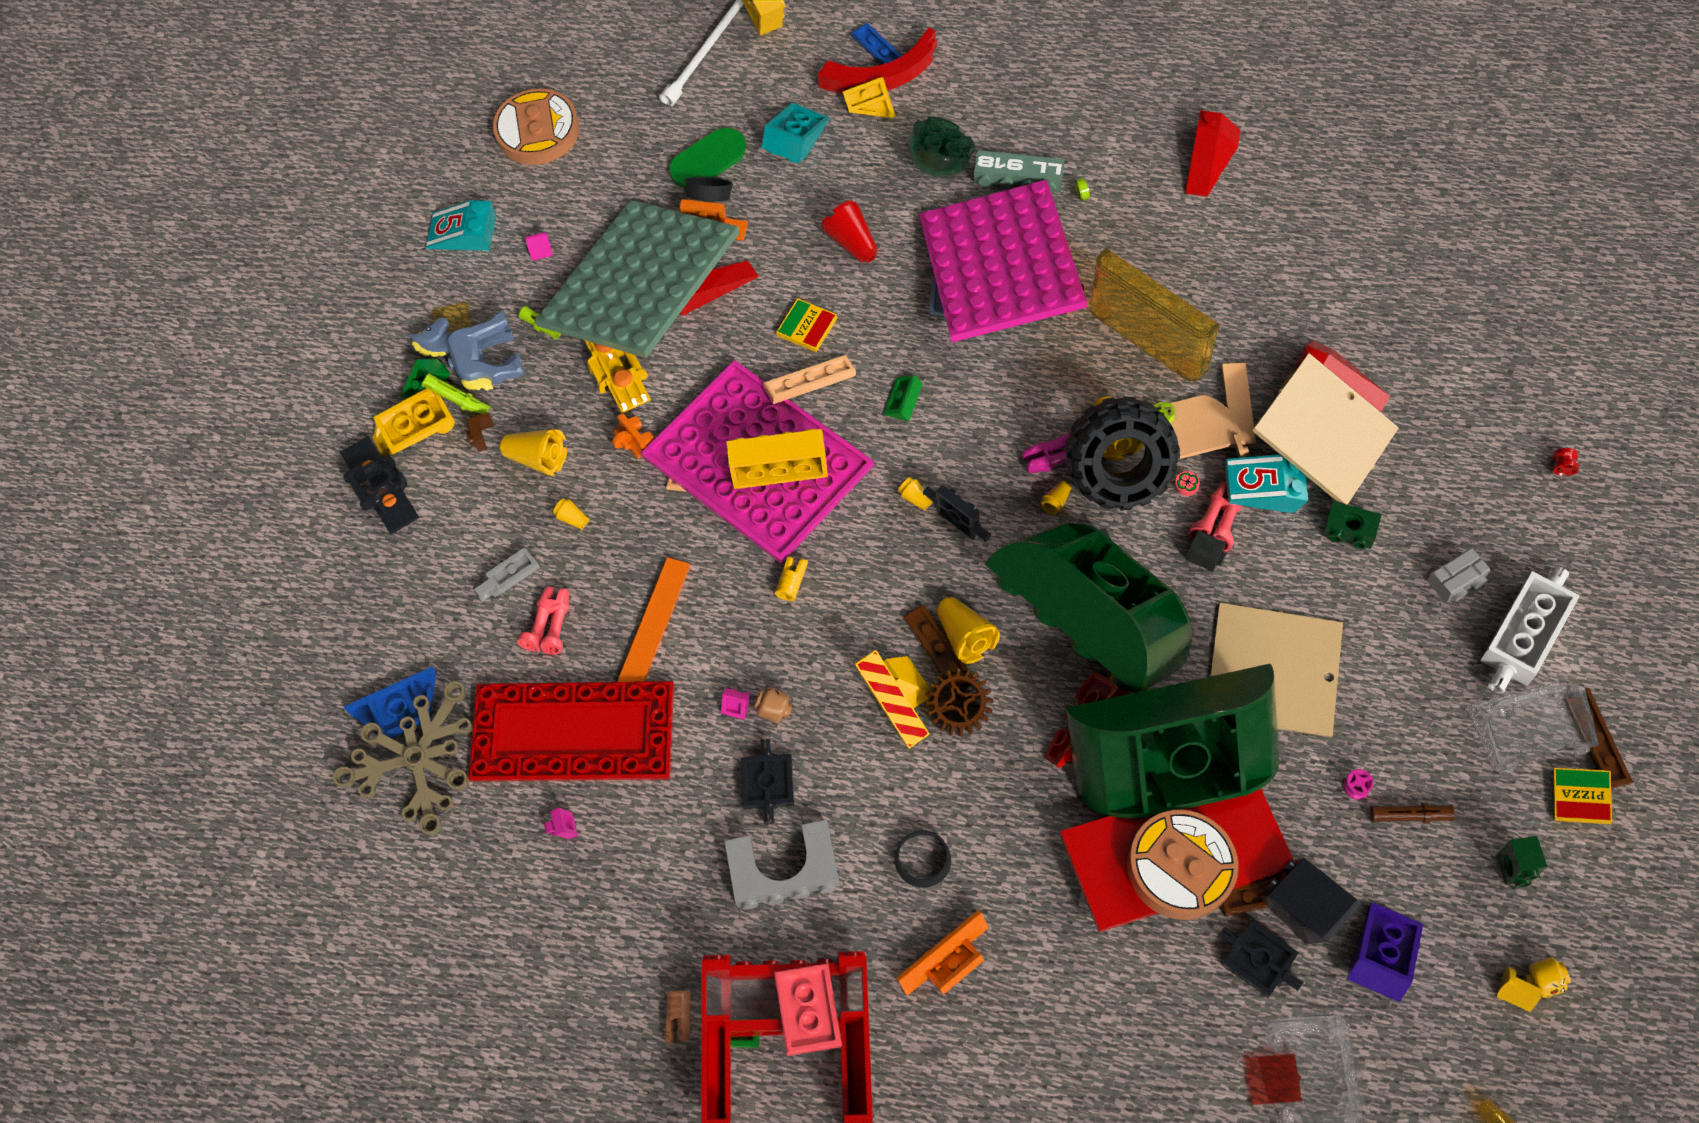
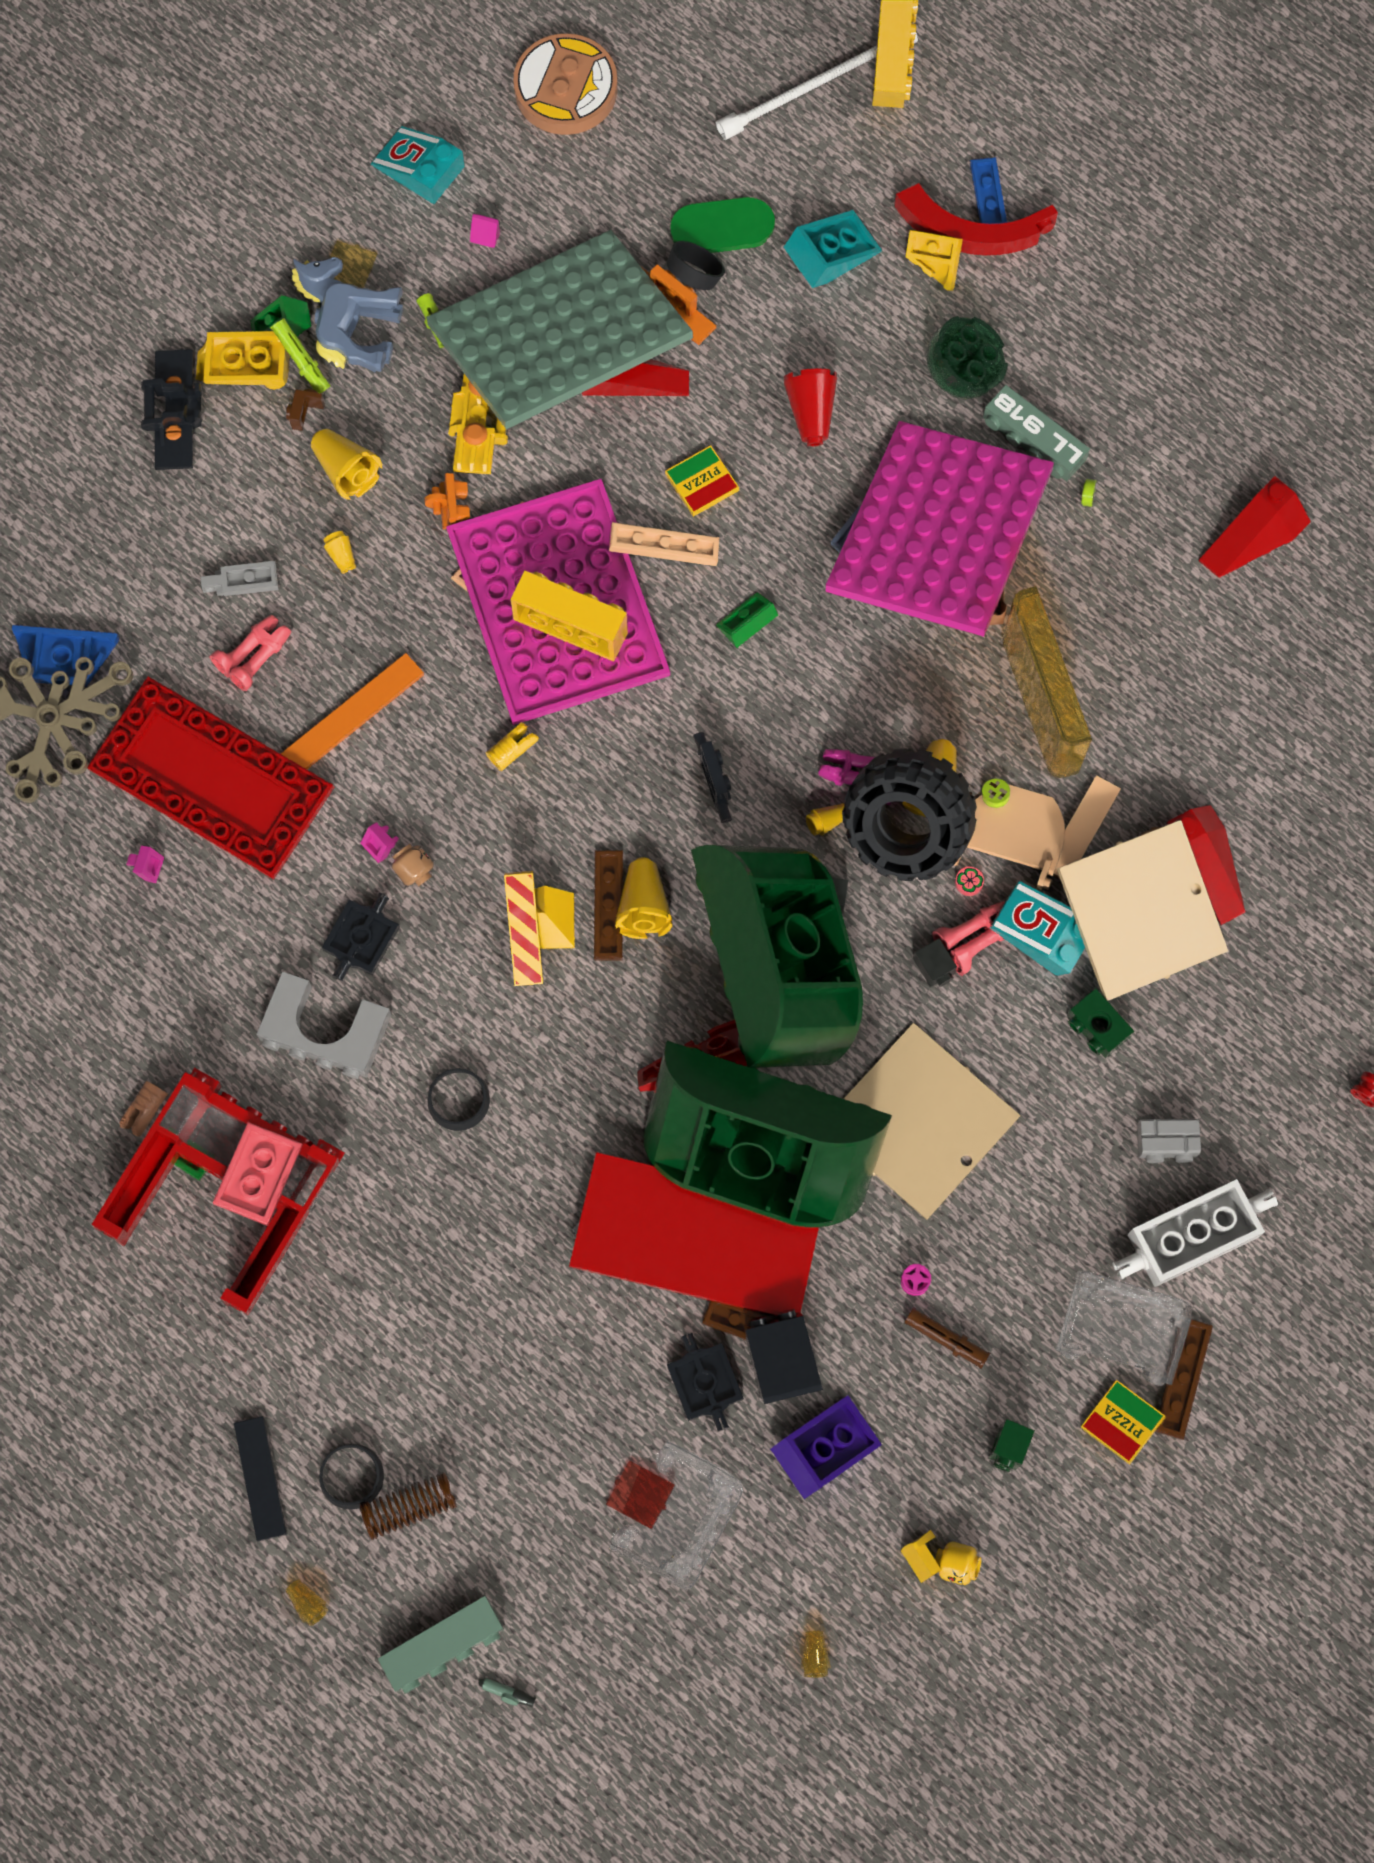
camera: 25 degrees right, 10 degrees up
(913, 493) = (687, 725): yellow cone -> none
(947, 960) = (418, 1206): orange bracket -> none
(970, 697) = (590, 956): reddish brown gear -> none
(1182, 864) = (687, 1252): piece -> none

